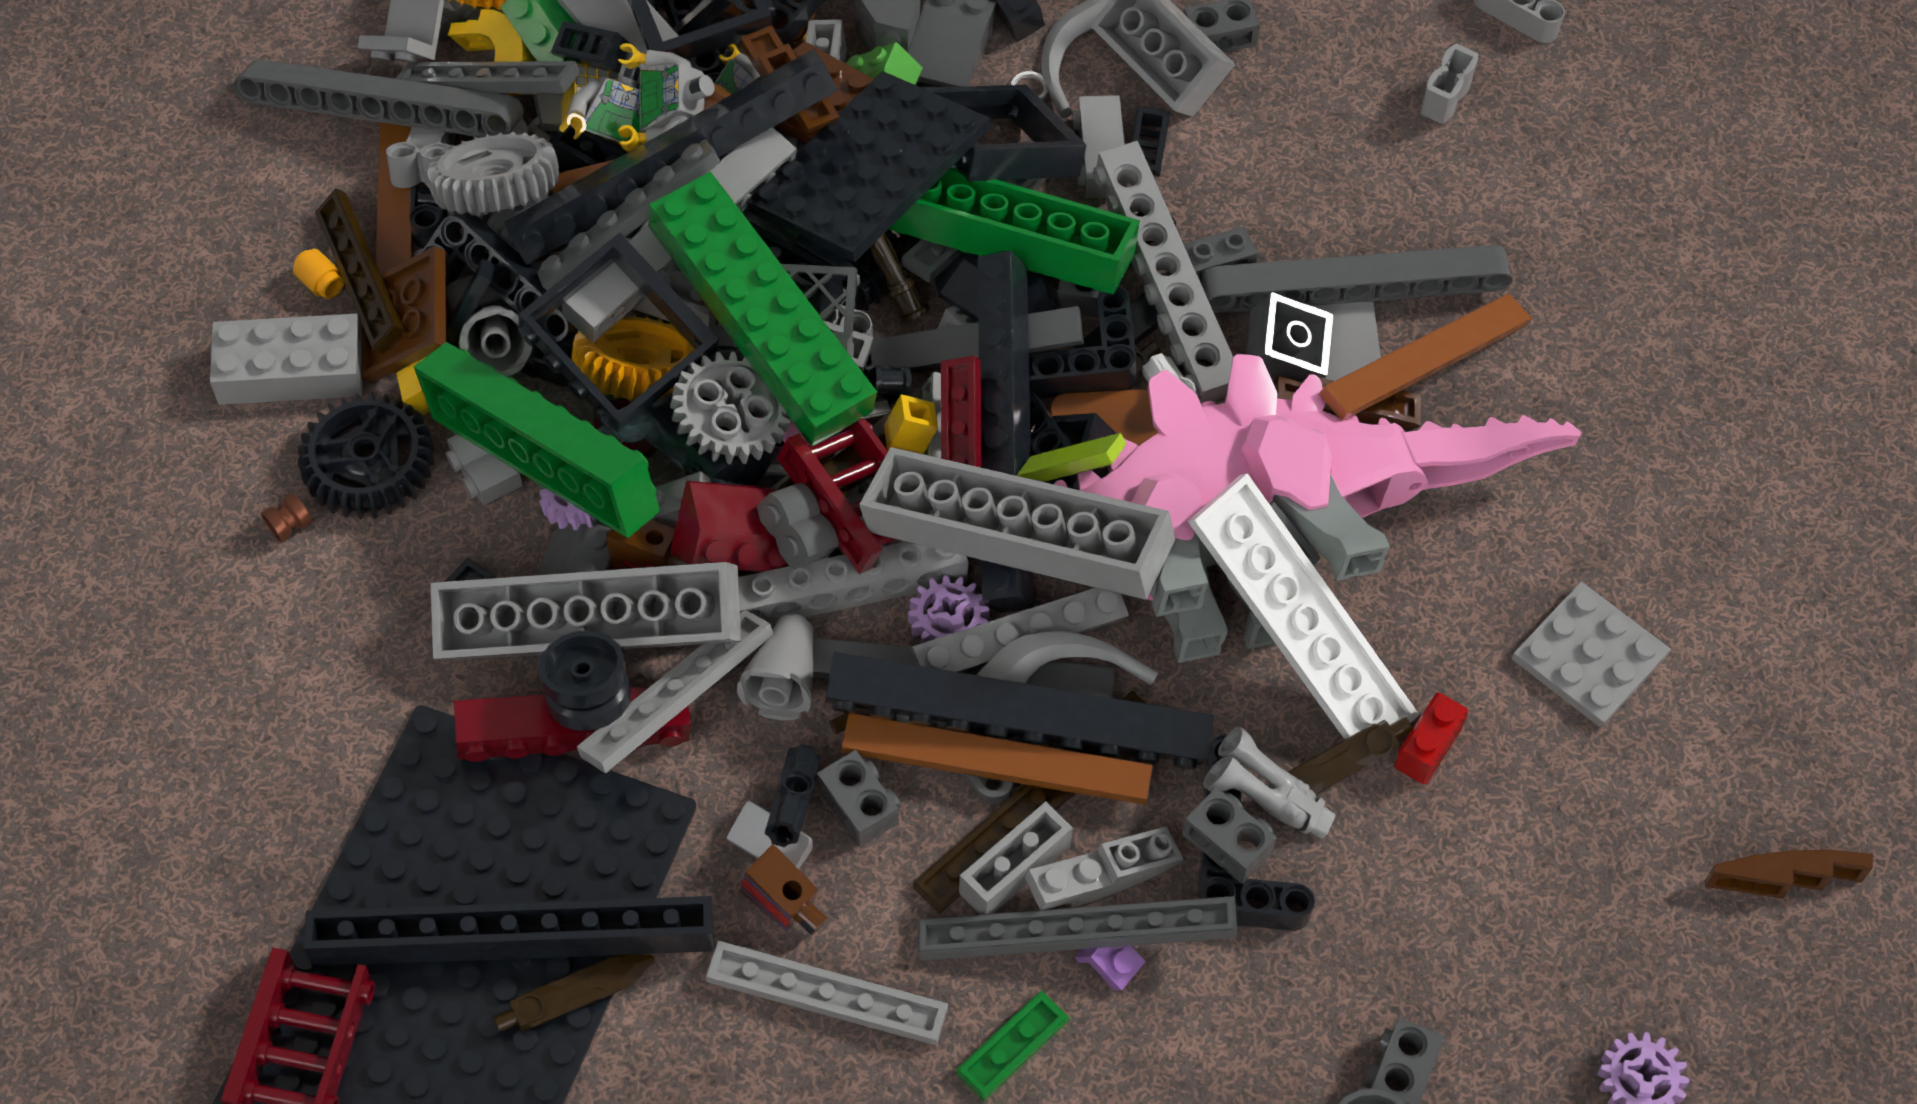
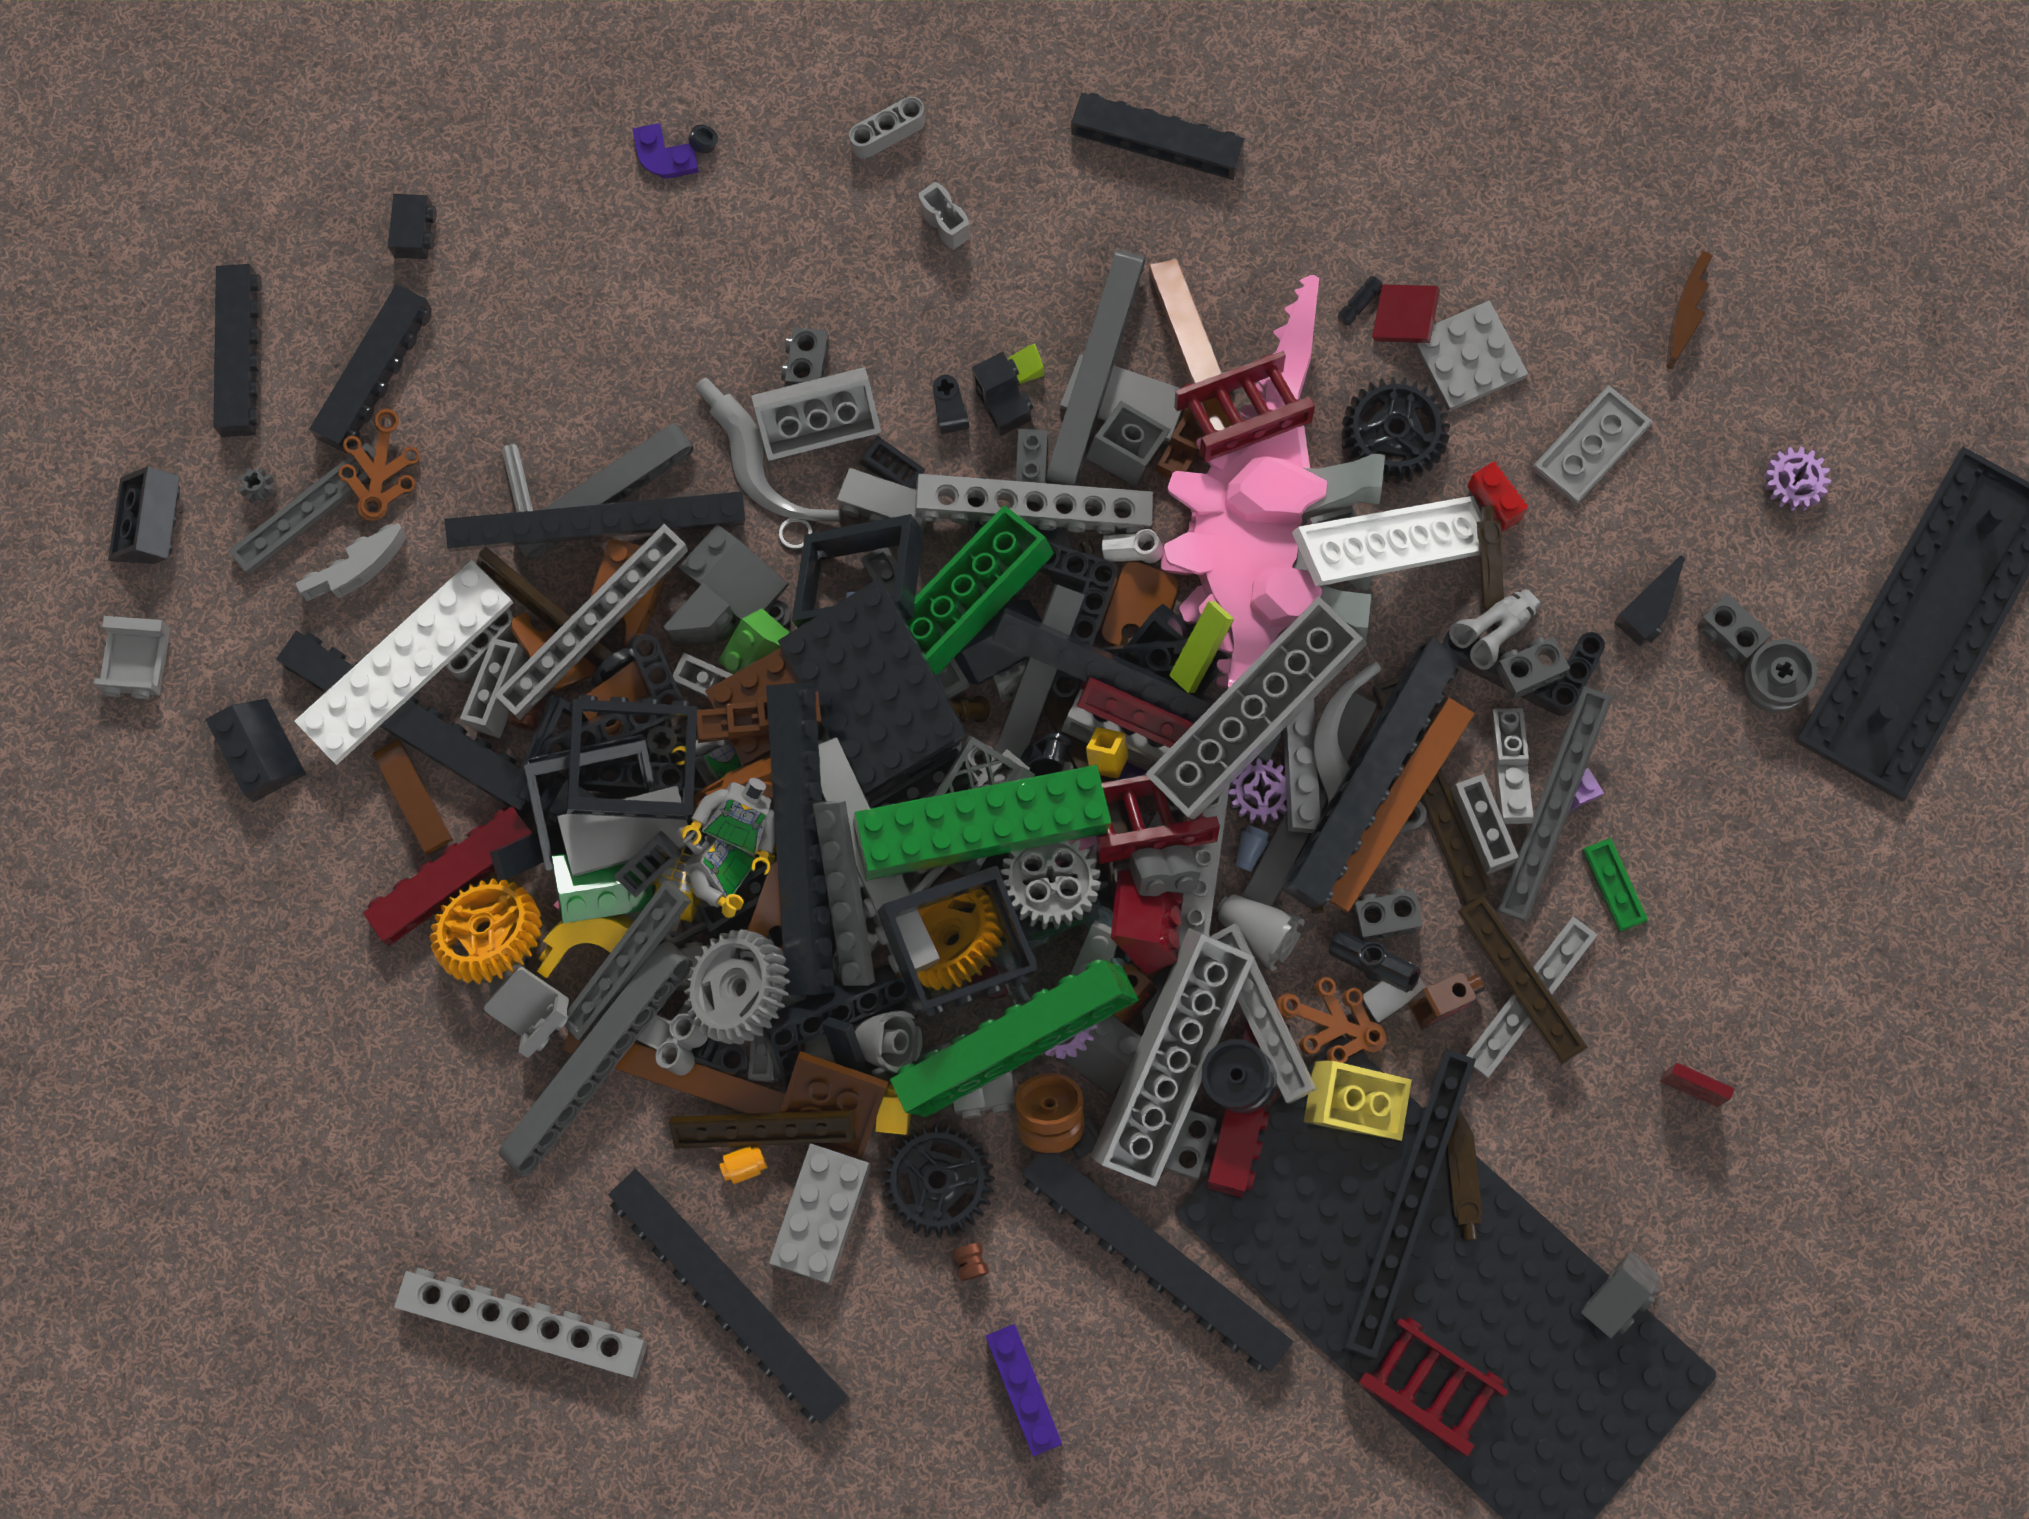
camera: 60 degrees left, 15 degrees up
(81, 147) = (413, 1298): none -> light grey brick
(156, 617) = (1023, 1390): none -> dark purple brick
(167, 313) = (729, 1297): none -> black brick
(351, 704) = (1158, 1260): none -> black brick
(477, 524) = (1049, 1113): none -> dark orange wheel
(499, 675) = (1197, 1147): none -> dark grey brick
(618, 838) = (1358, 1100): none -> light yellow slope
(701, 784) = (1335, 1022): none -> dark orange plant
(839, 971) = (1522, 980): none -> dark brown tile
(879, 628) = (1251, 846): none -> sand blue cone
(1240, 165) = (949, 408): none -> black piece
(1281, 201) = (997, 388): none -> black brick
(1329, 223) = (1028, 364): none -> lime slope
(1360, 423) = (1244, 432): none -> dark red fence
(1385, 960) = (1649, 610): none -> black slope
(1448, 625) = (1400, 405): none -> black gear
(1556, 827) = (1592, 445): none -> light grey tile
(1591, 516) = (1360, 300): none -> black axle
(1601, 564) = (1406, 313): none -> dark red tile
(1664, 250) = (1157, 135): none -> black brick

